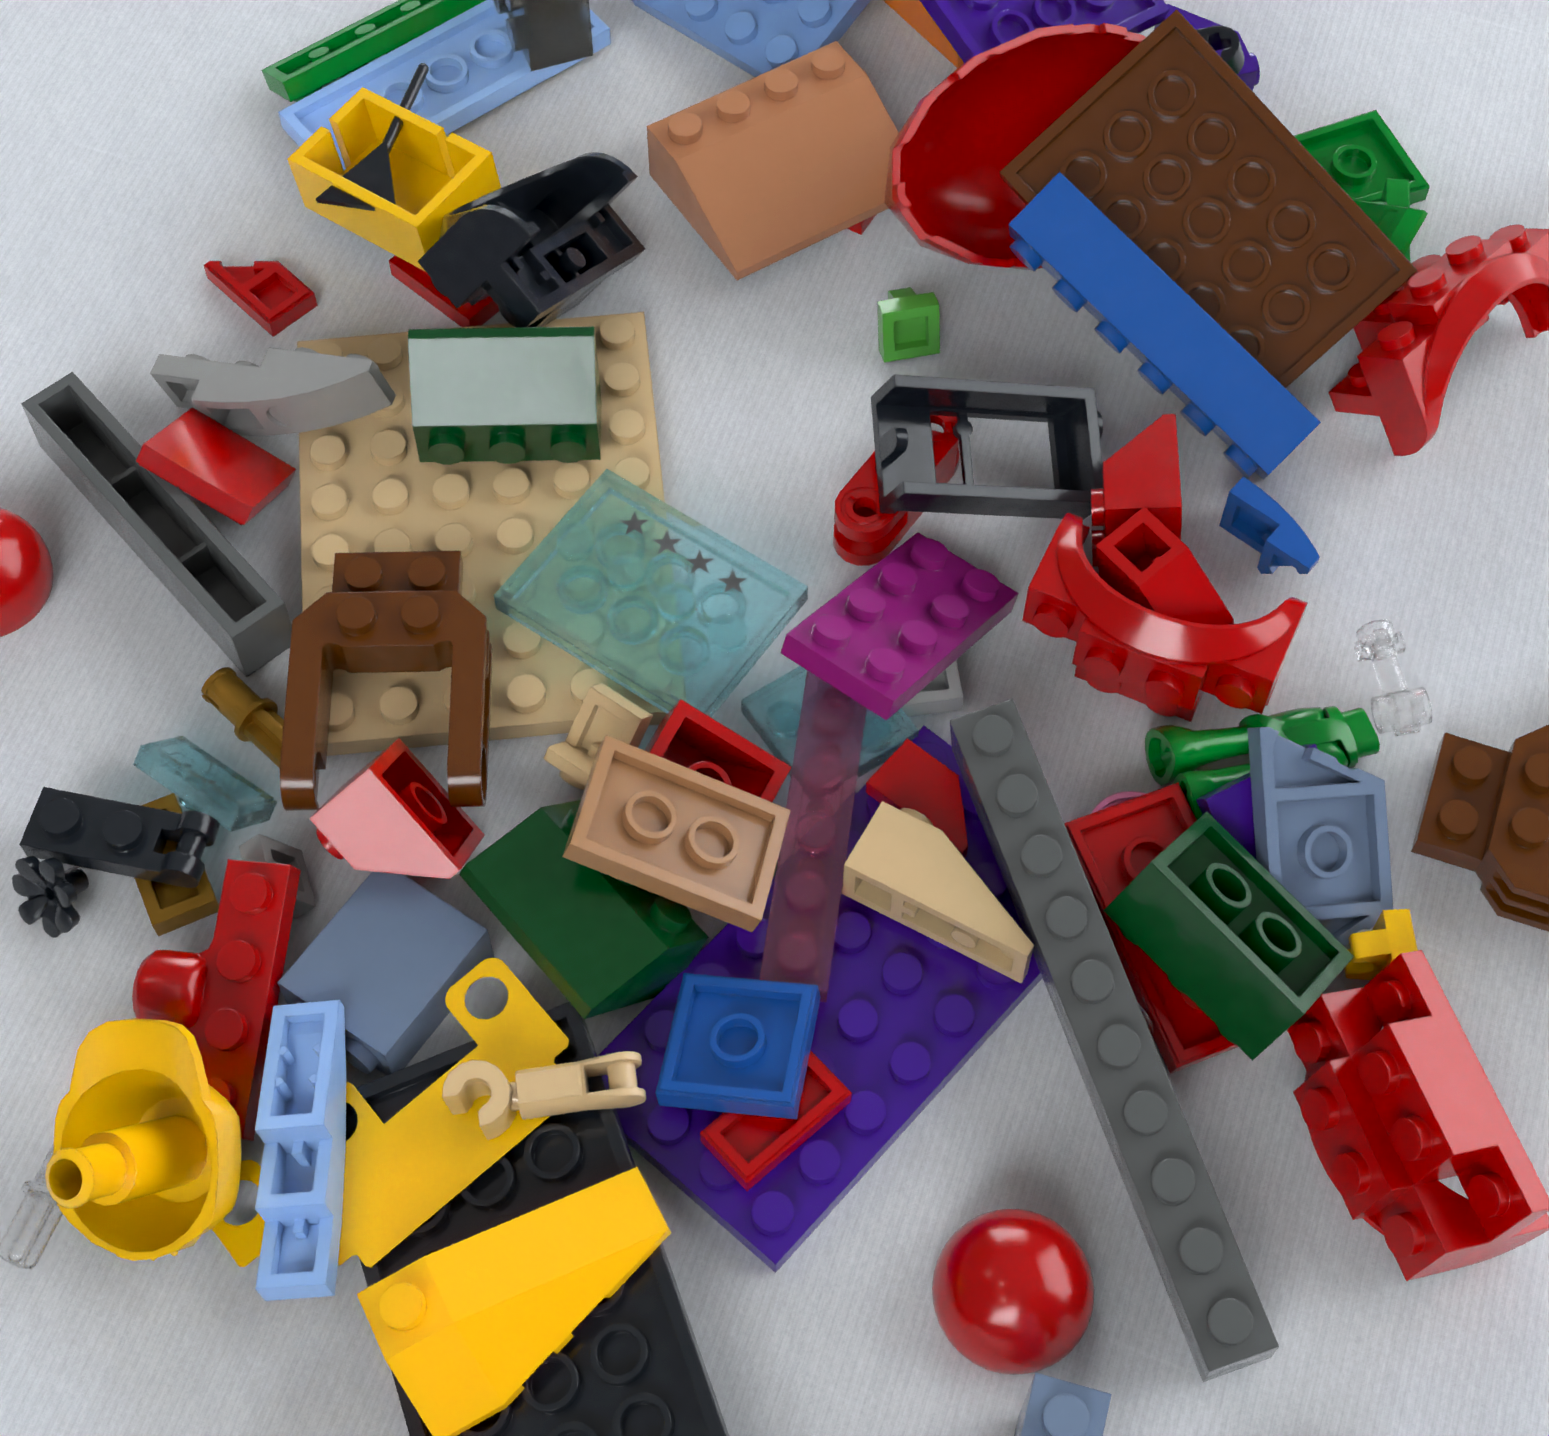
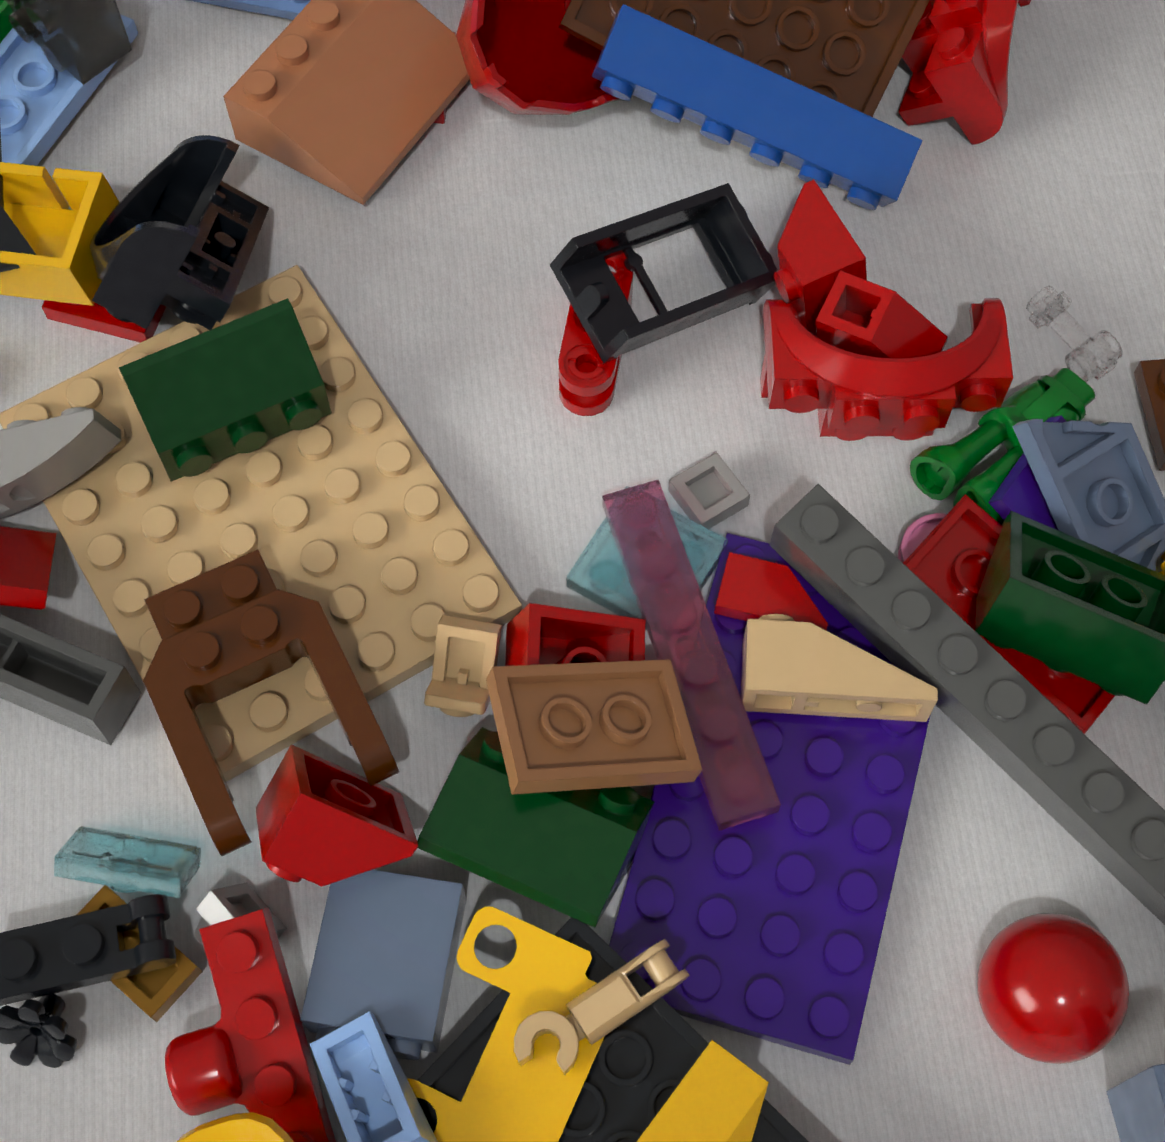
camera: 25 degrees left, 5 degrees up
(252, 716) = (137, 780): pearl gold axle -> none
(651, 597) = (442, 520): clear light blue plate -> none
(739, 1046) = (733, 887): blue tile -> none
(756, 1144) = (792, 934): red tile -> none
(899, 625) = (670, 456): magenta plate -> none
(908, 325) = (532, 187): bright green tile -> none
(1268, 529) = (918, 247): blue slope -> none

